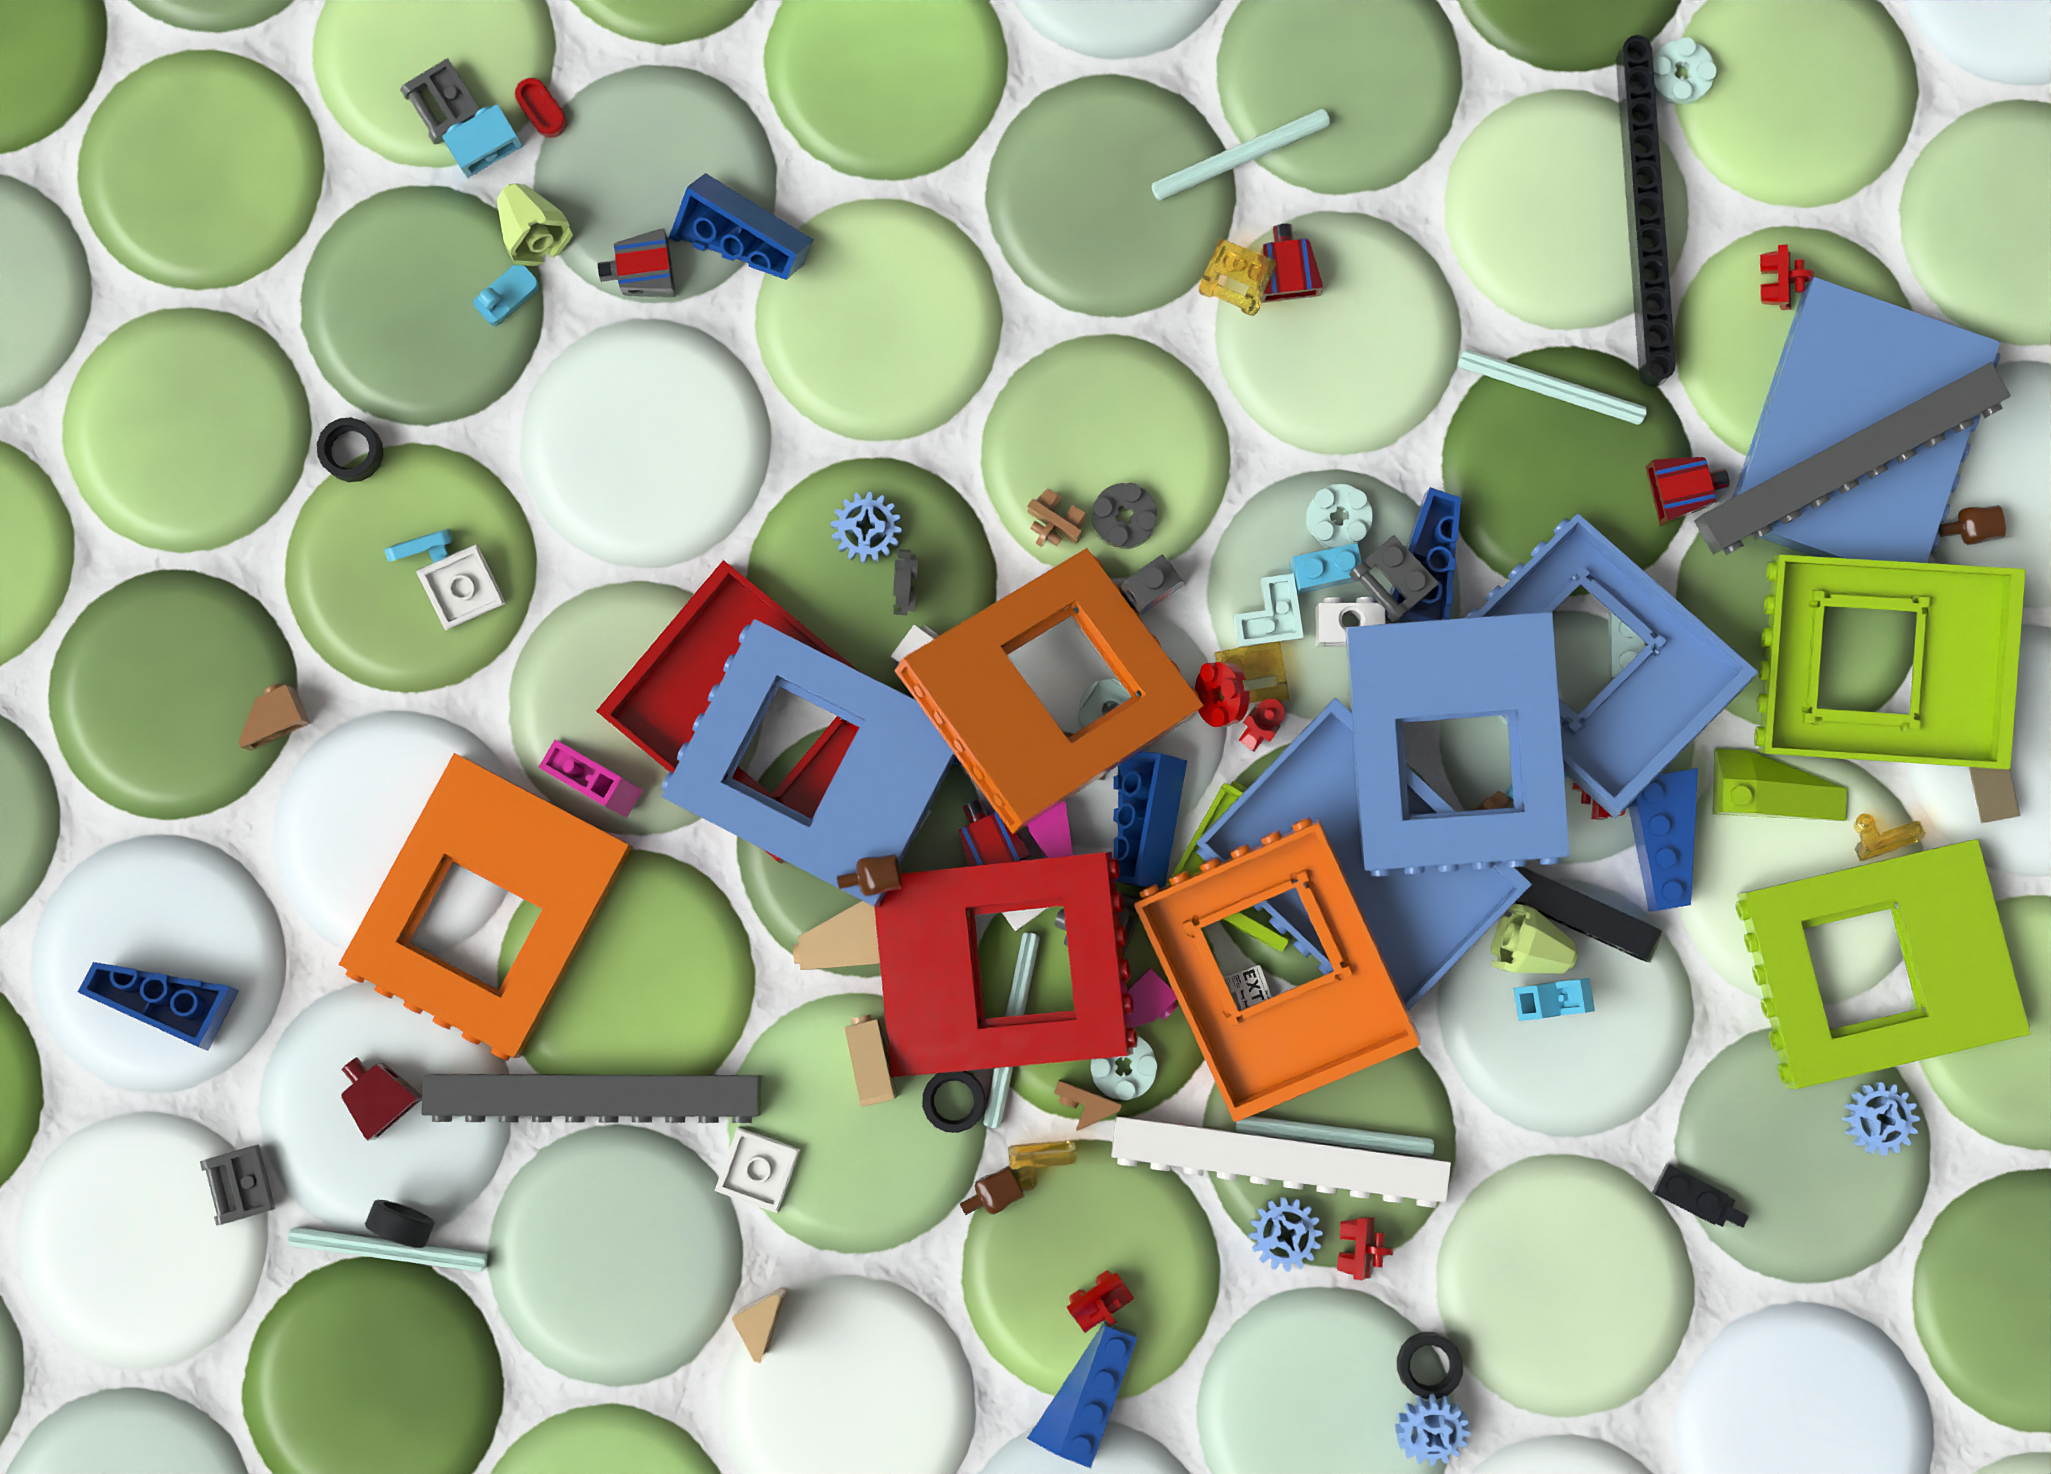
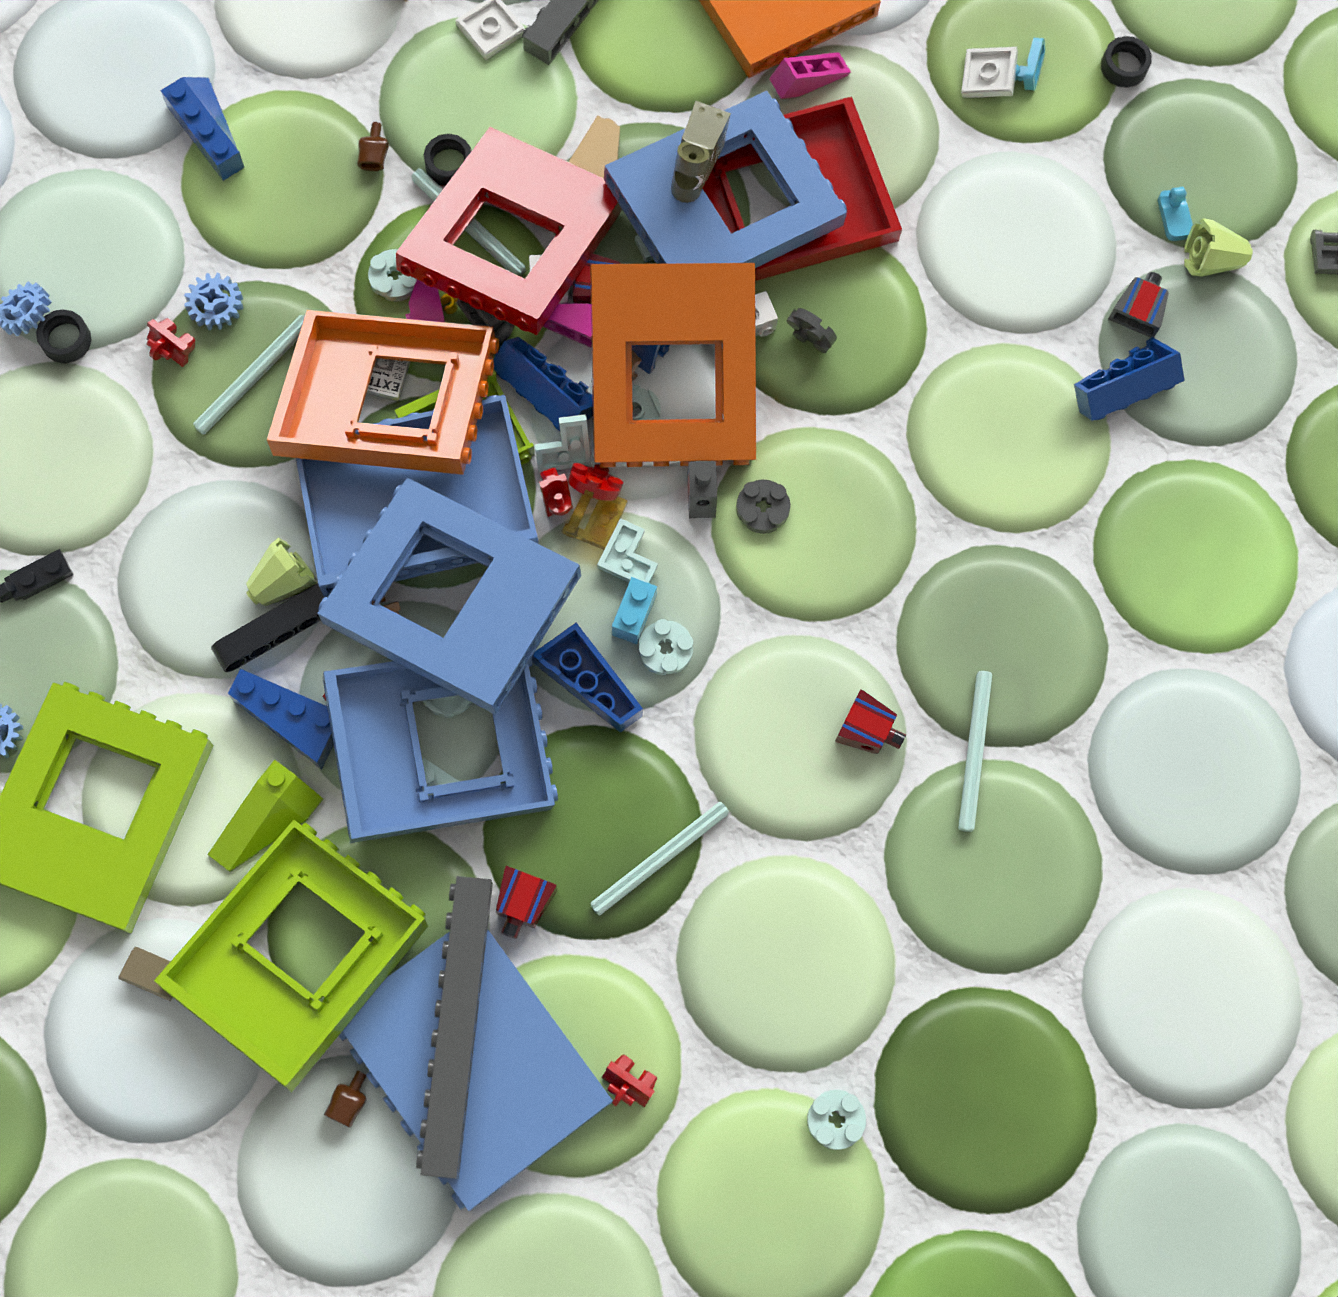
camera: 115 degrees right, 10 degrees down
(481, 140) = (1295, 258): medium azure brick -> none
(540, 107) = (1297, 311): red tile -> none
(801, 807) = (698, 150): none -> olive piece
(852, 525) = (865, 345): light blue gear -> none
(870, 1061) = (506, 116): tan slope -> none
(873, 875) = (624, 174): reddish brown piece -> none
(1028, 1156) = (375, 188): clear yellow piece -> none
(1043, 510) = (787, 452): medium nougat hips -> none
(1095, 1106) = (387, 238): medium nougat slope -> none
(1099, 1302) = (256, 164): red hips -> none
(1199, 743) = (571, 449): none -> light aqua plate
(1242, 266) = (887, 688): clear yellow plate -> none
(1280, 1159) = (259, 329): white brick -> none
(1329, 615) = (588, 587): white brick -> none
(1401, 571) = (594, 647): dark grey plate -> none
(1554, 999) = (235, 565): medium azure brick -> none
(1648, 195) = (761, 1014): black beam -> none
(1874, 844) = (176, 859): clear yellow piece -> none

